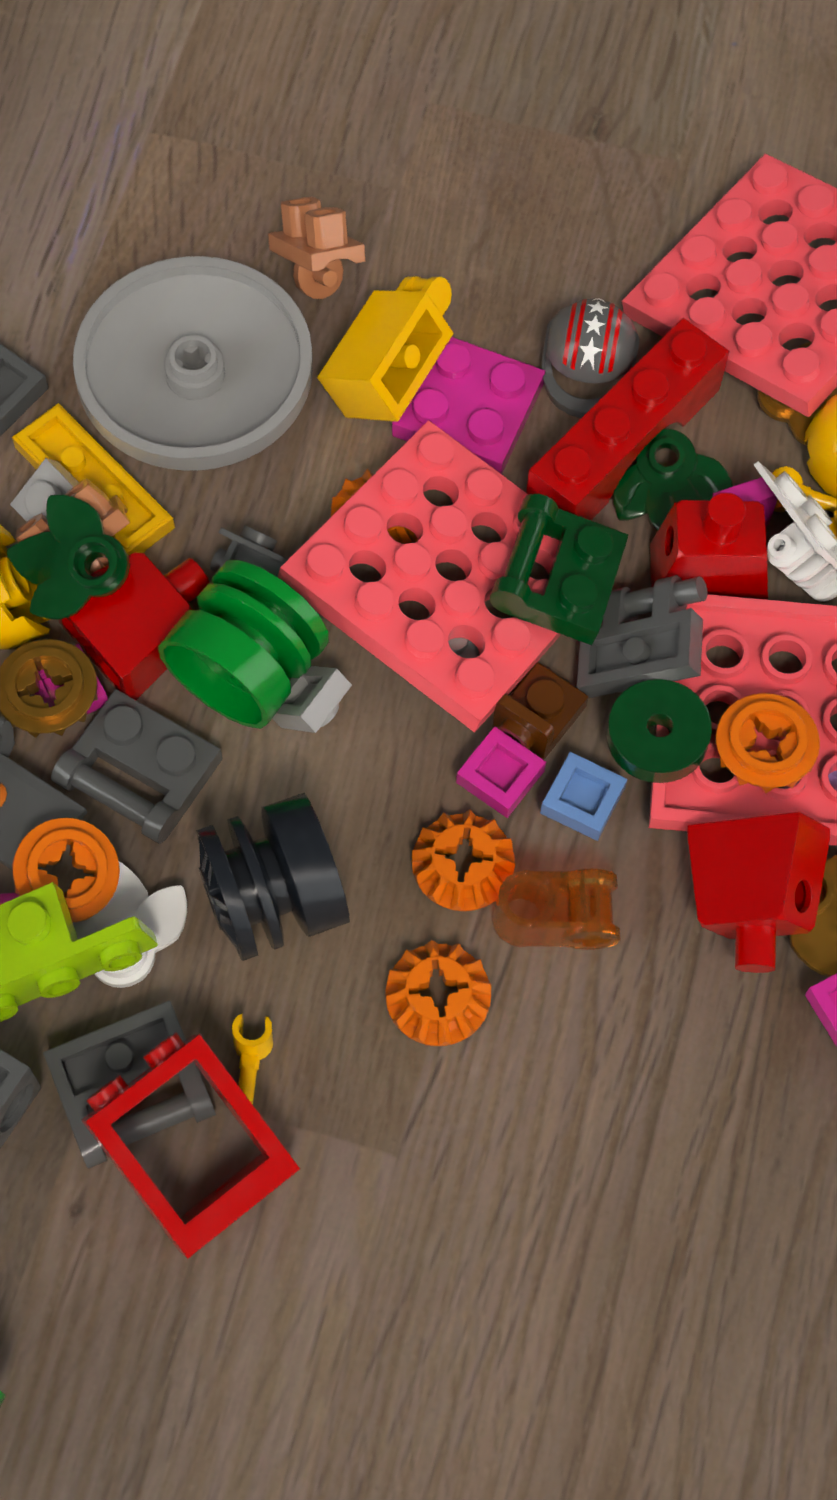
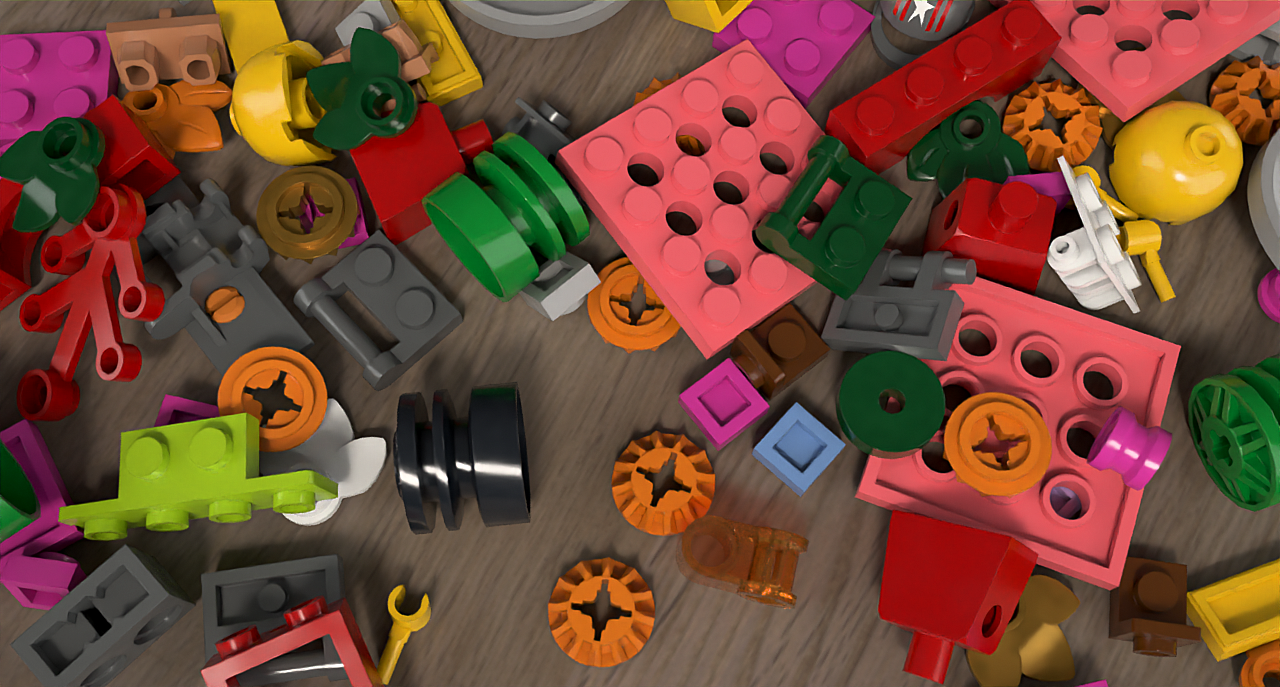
camera: 15 degrees right, 5 degrees up
(371, 720) = (612, 321): none -> orange gear
(770, 438) = (1043, 147): none -> orange gear

